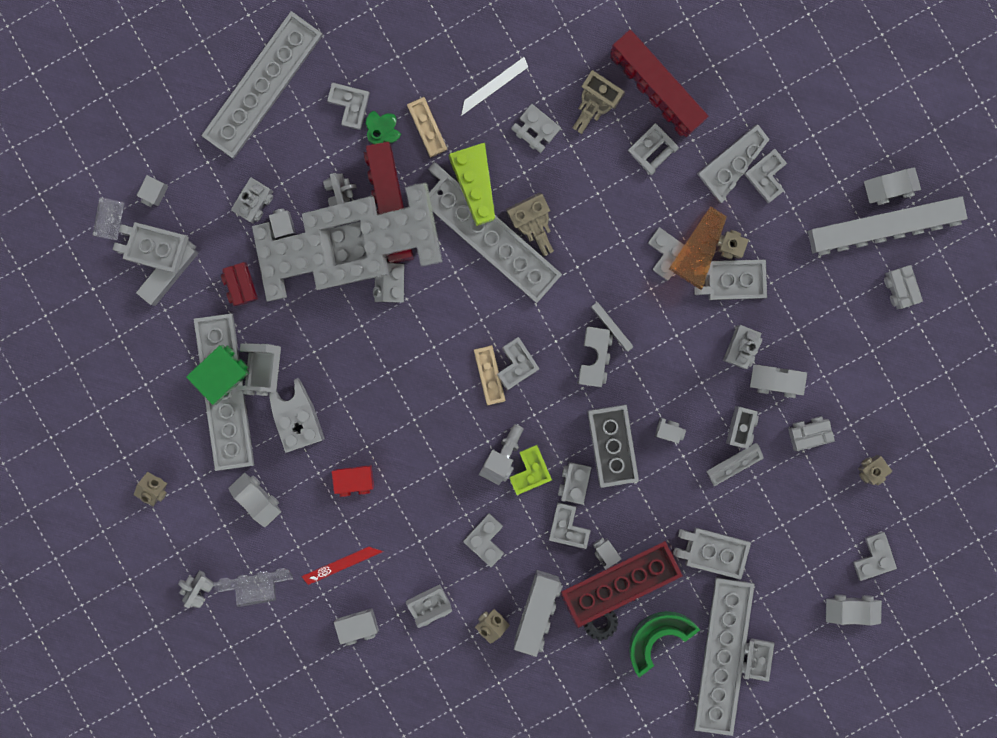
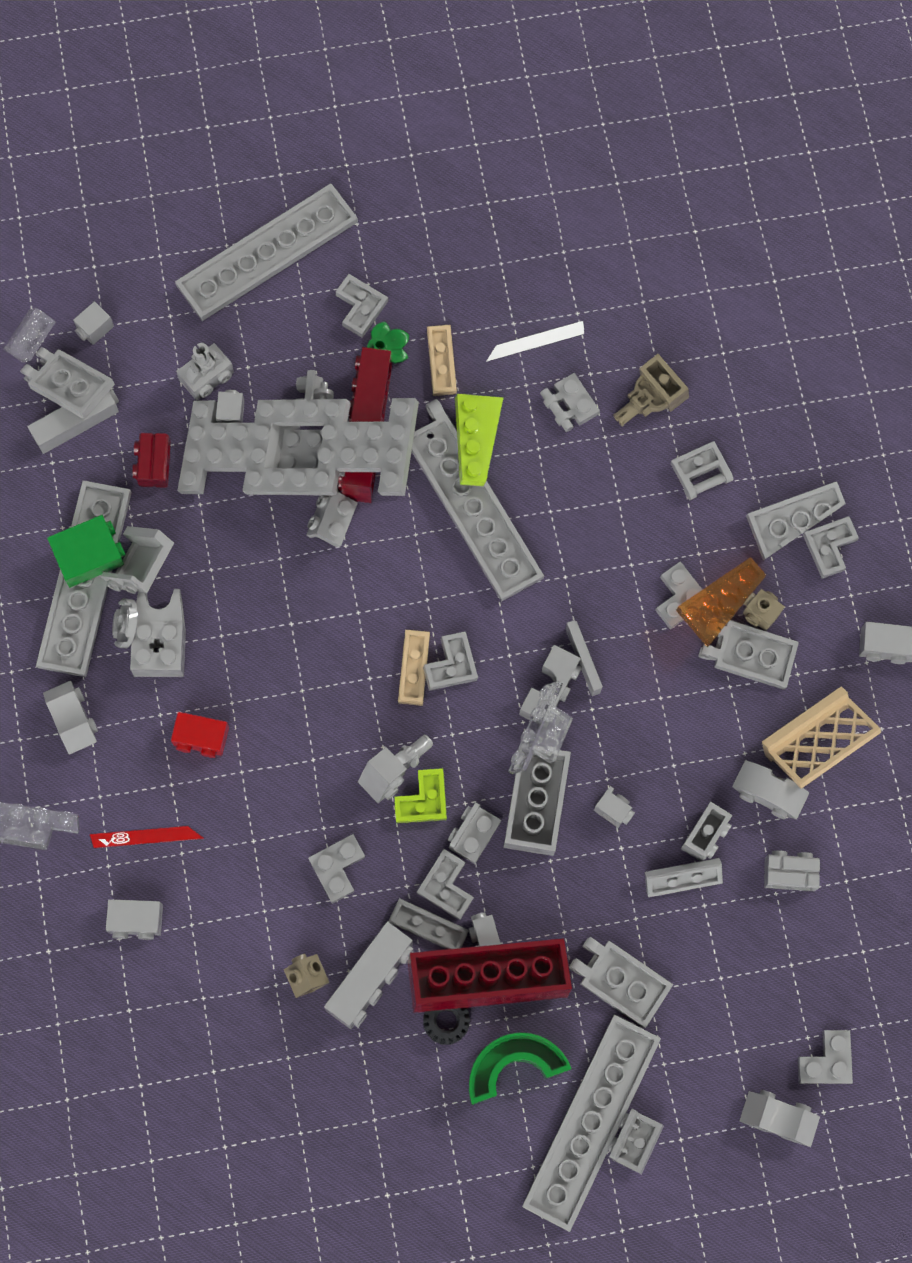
camera: 20 degrees right, 15 degrees down
(267, 418) = (125, 623): none -> light grey tile
(429, 606) = (236, 923): light grey bracket -> none
(531, 217) = (529, 497): dark tan brick -> none
(565, 559) = (428, 925): none -> light grey tile
(602, 397) = (544, 732): none -> clear bracket
(657, 84) = (731, 397): dark red brick -> none
(743, 347) = (737, 736): light grey brick -> none
(789, 323) = (811, 721): none -> tan fence
(877, 465) = (867, 942): dark tan brick -> none

